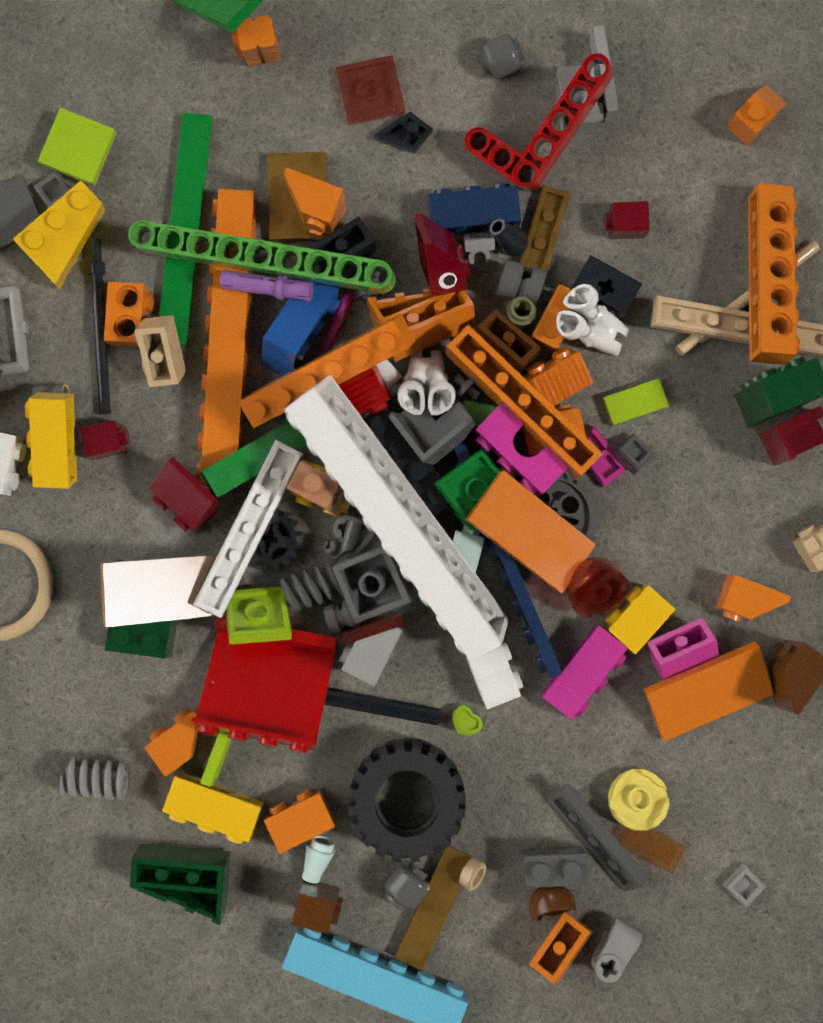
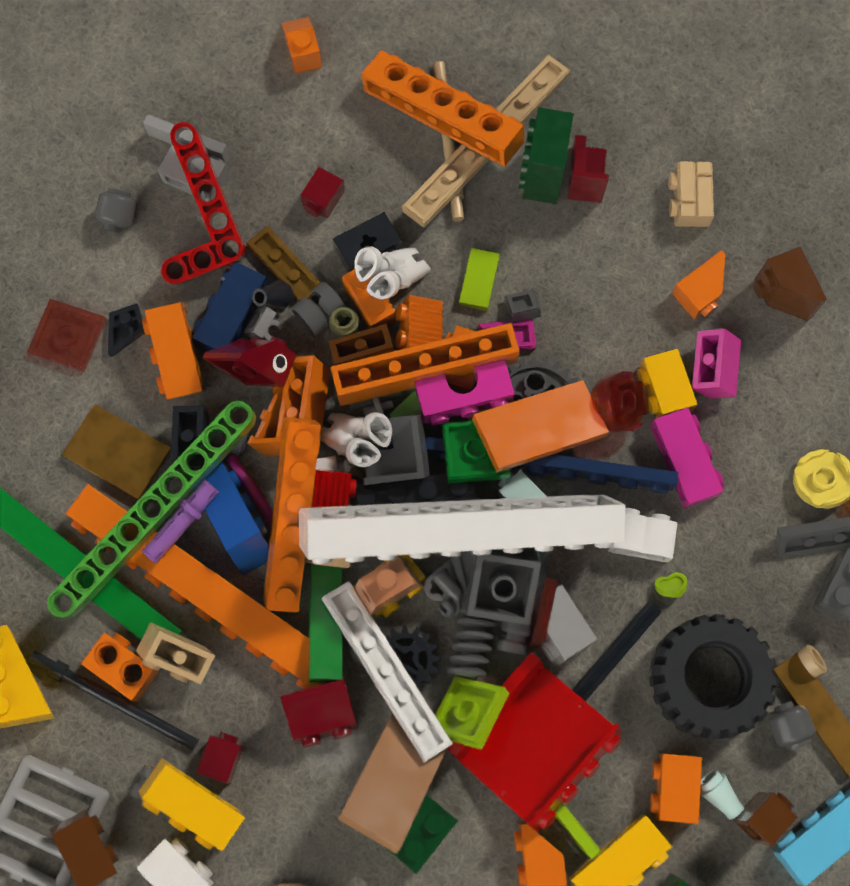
camera: 60 degrees left, 10 degrees down
(317, 203) = (136, 436): orange slope -> none
(409, 185) = (173, 350): none -> orange wedge
(709, 691) = (763, 365): orange tile -> none

